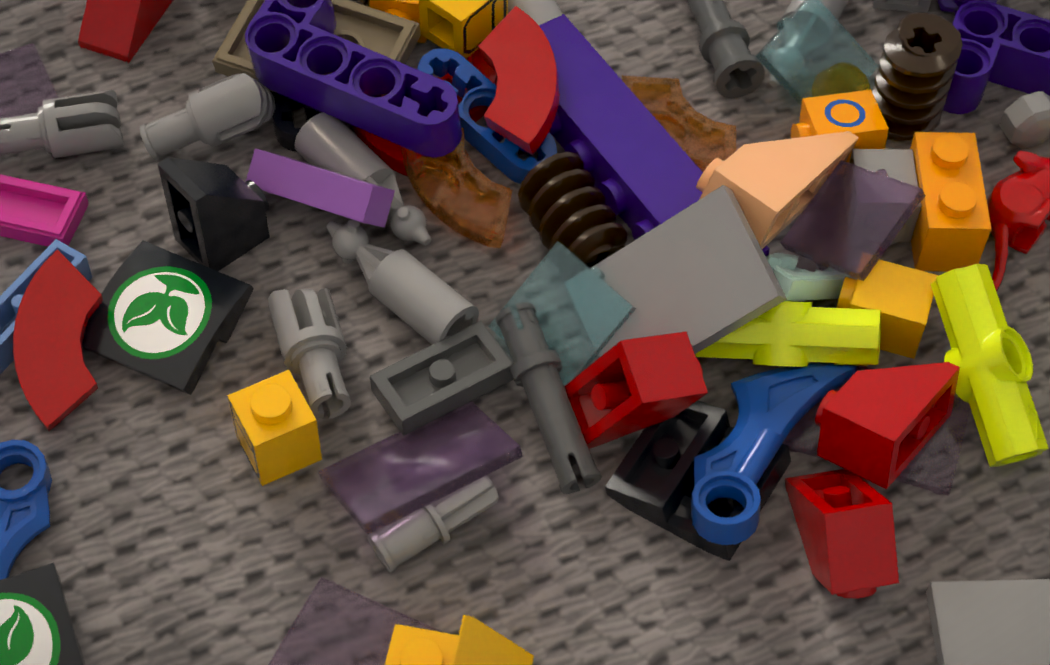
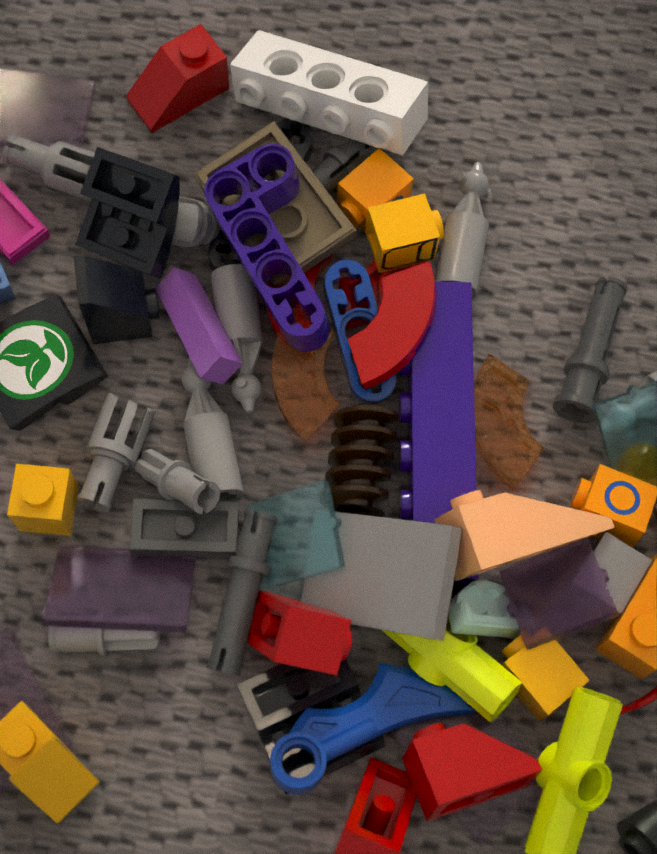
camera: 30 degrees right, 15 degrees up
(172, 109) = (129, 212): none -> black slope
(405, 331) = (178, 481): none -> light grey axle

